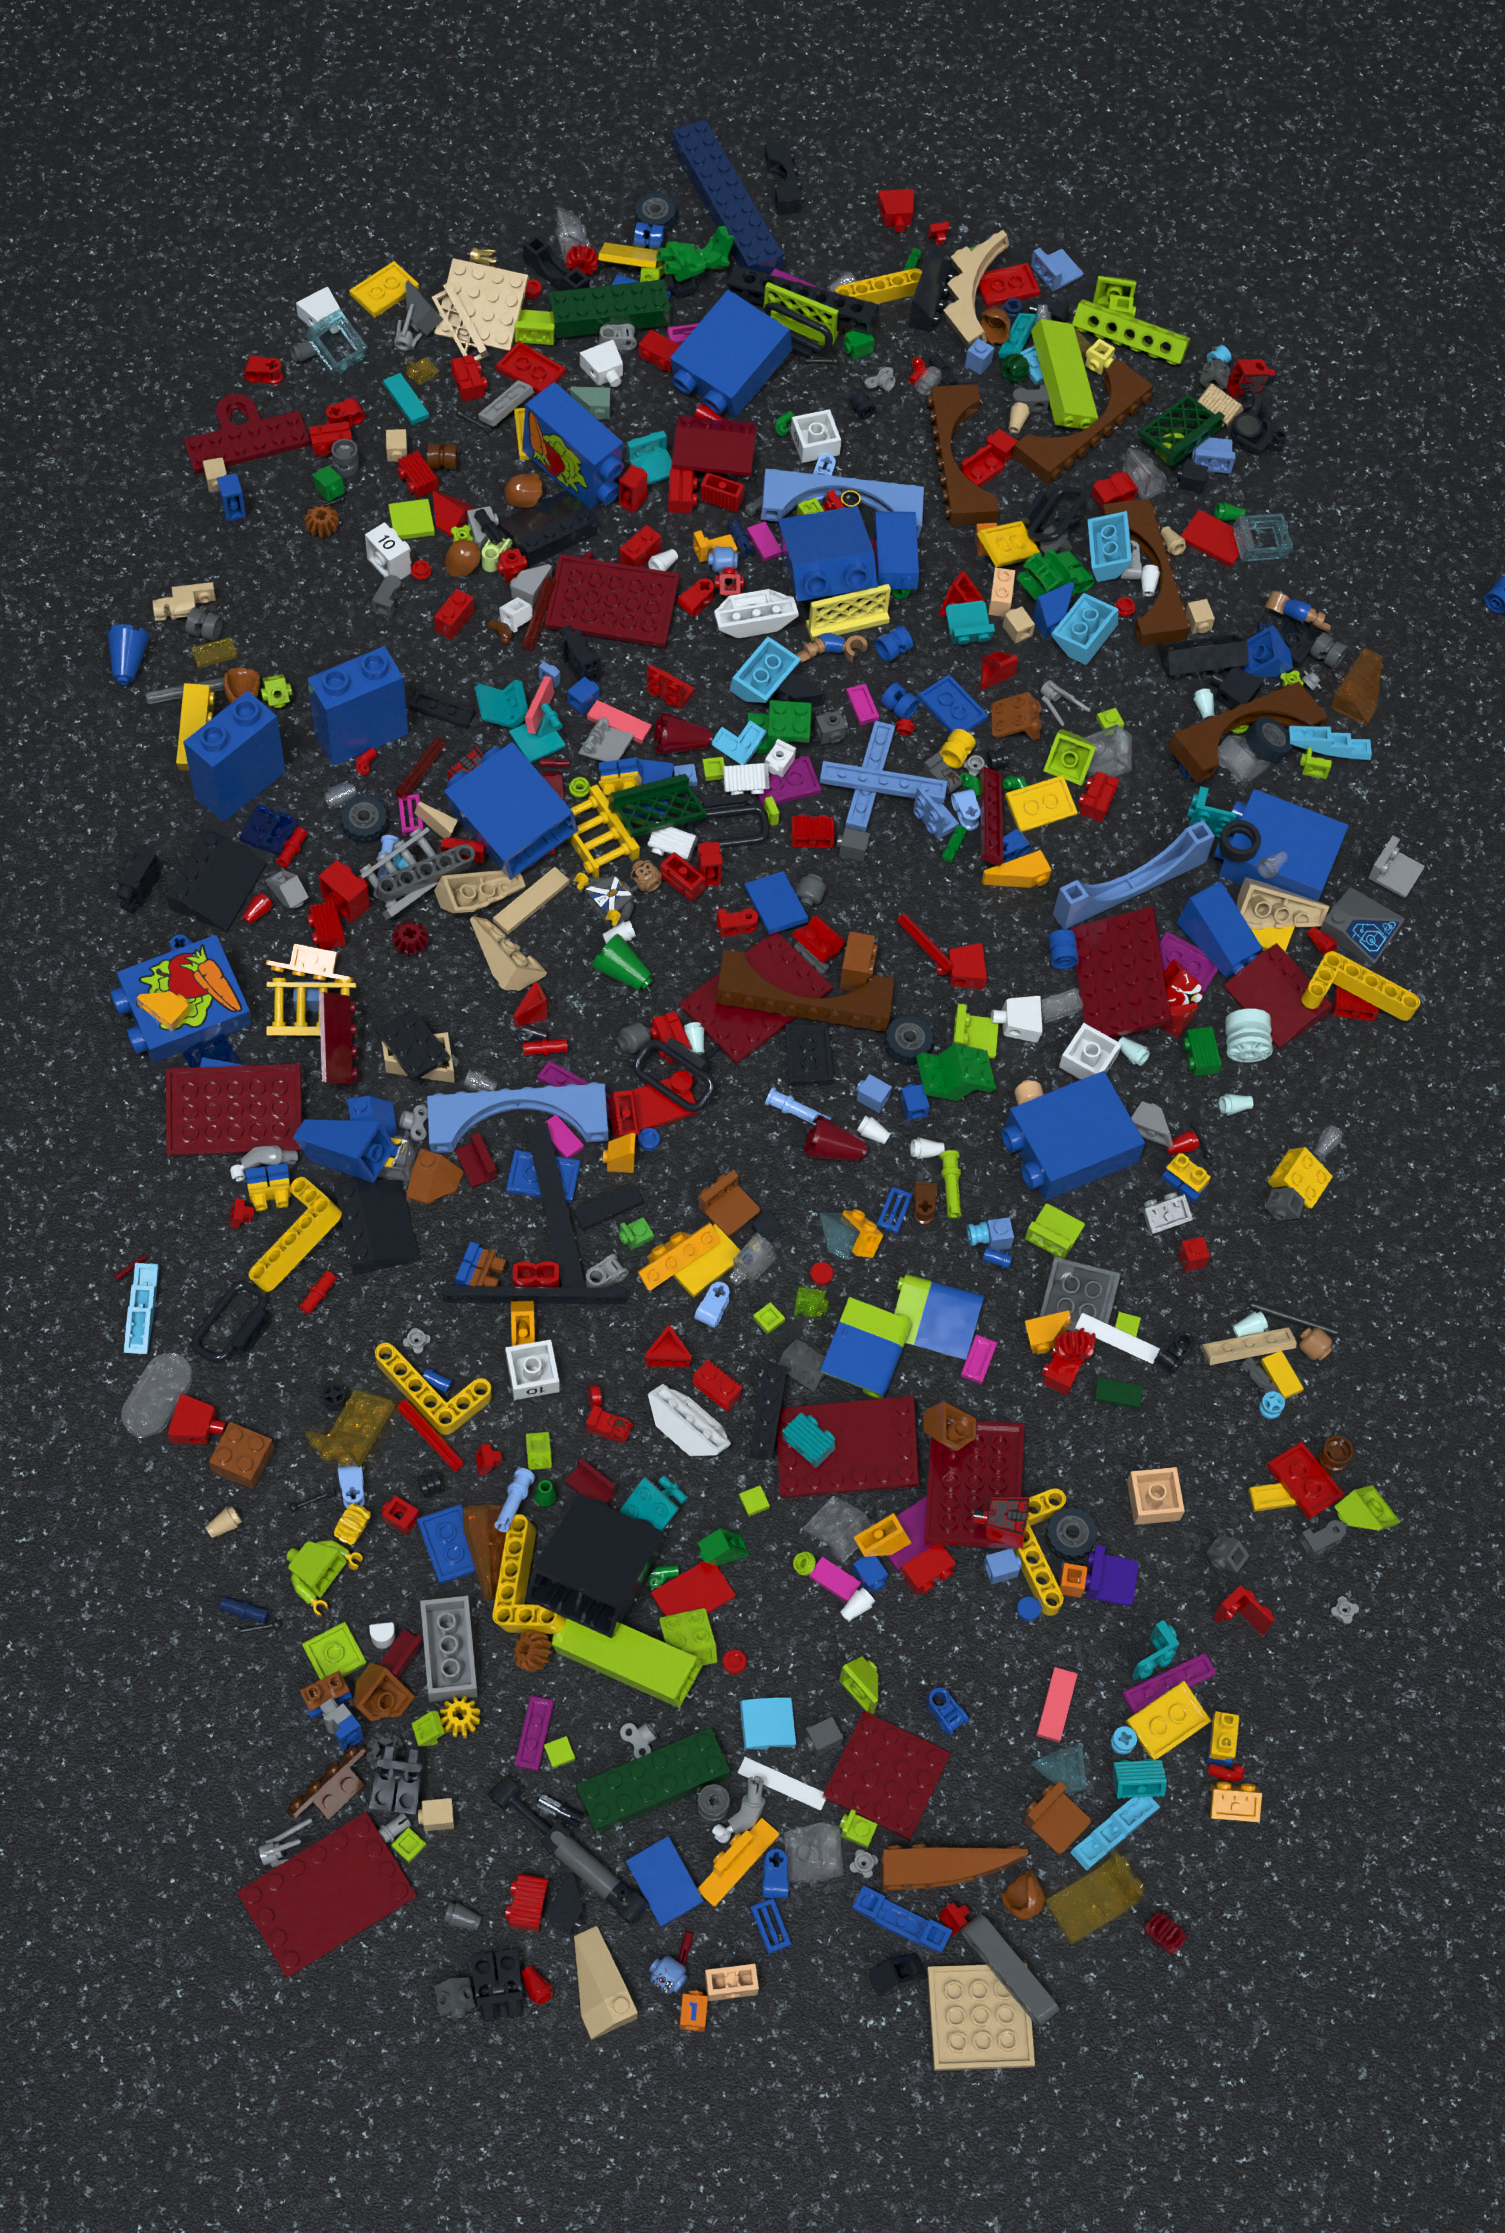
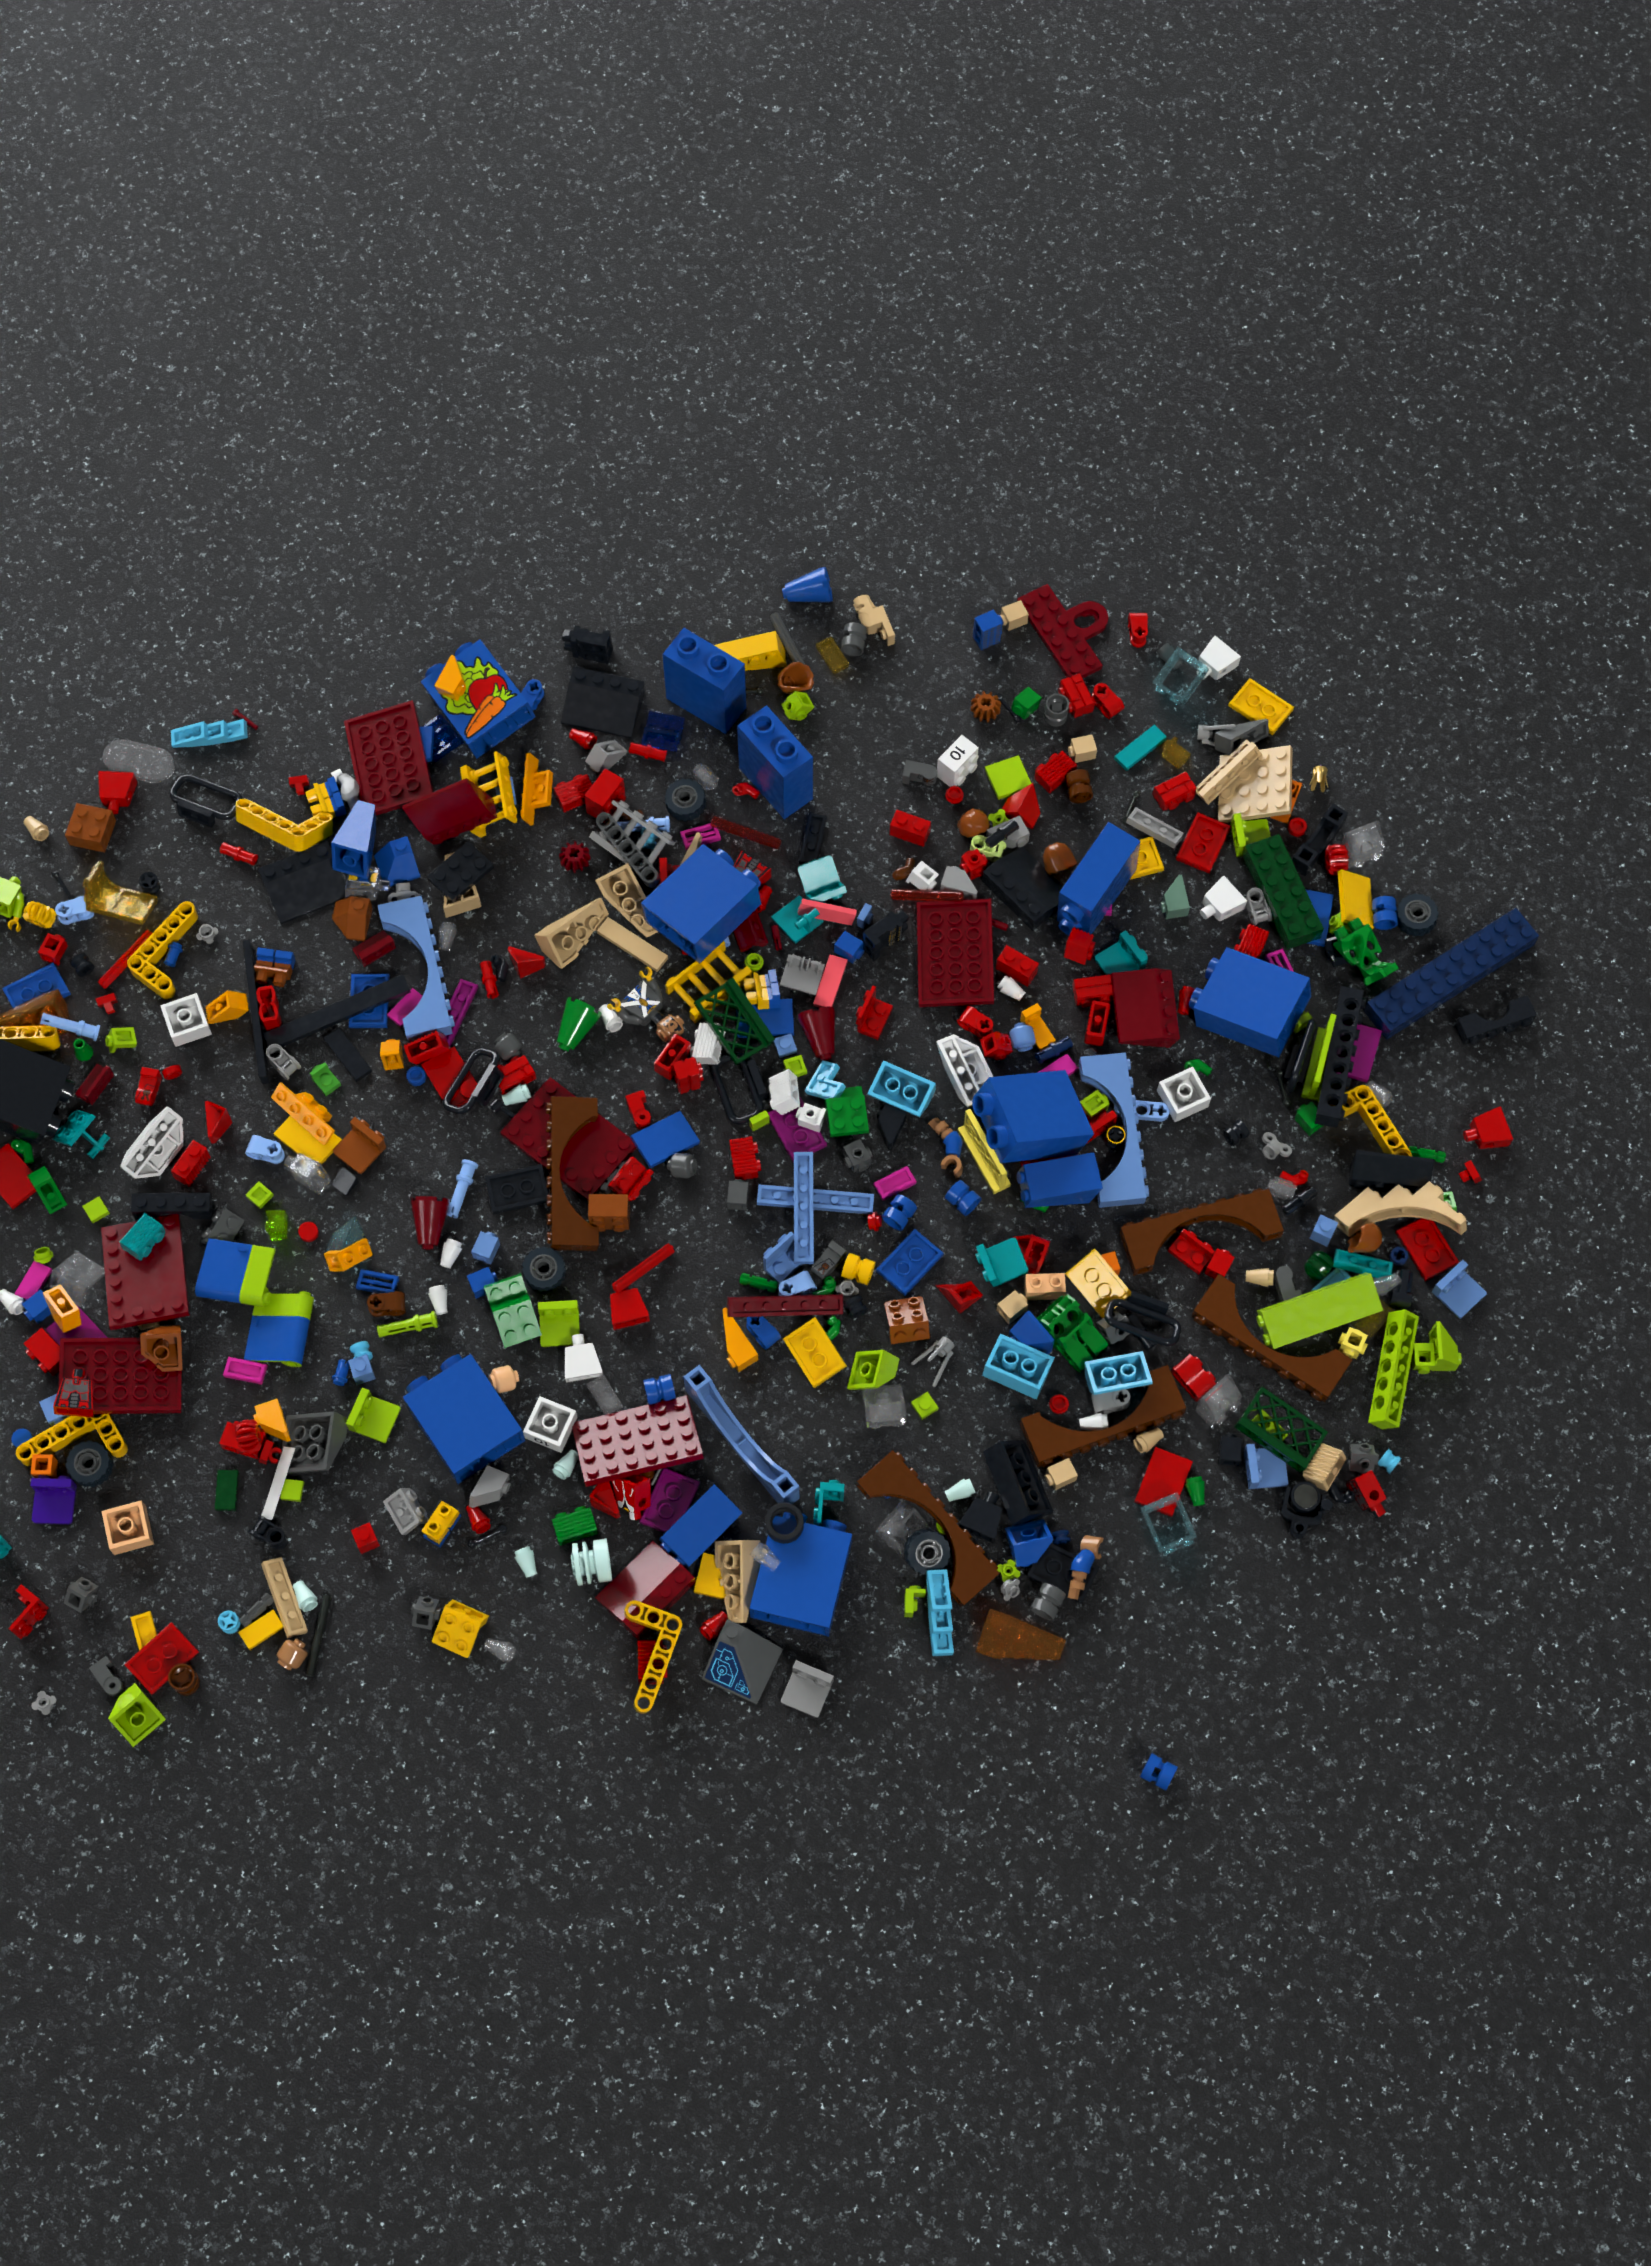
camera: 85 degrees right, 5 degrees up
(1099, 796) = (833, 1402): red brick -> none

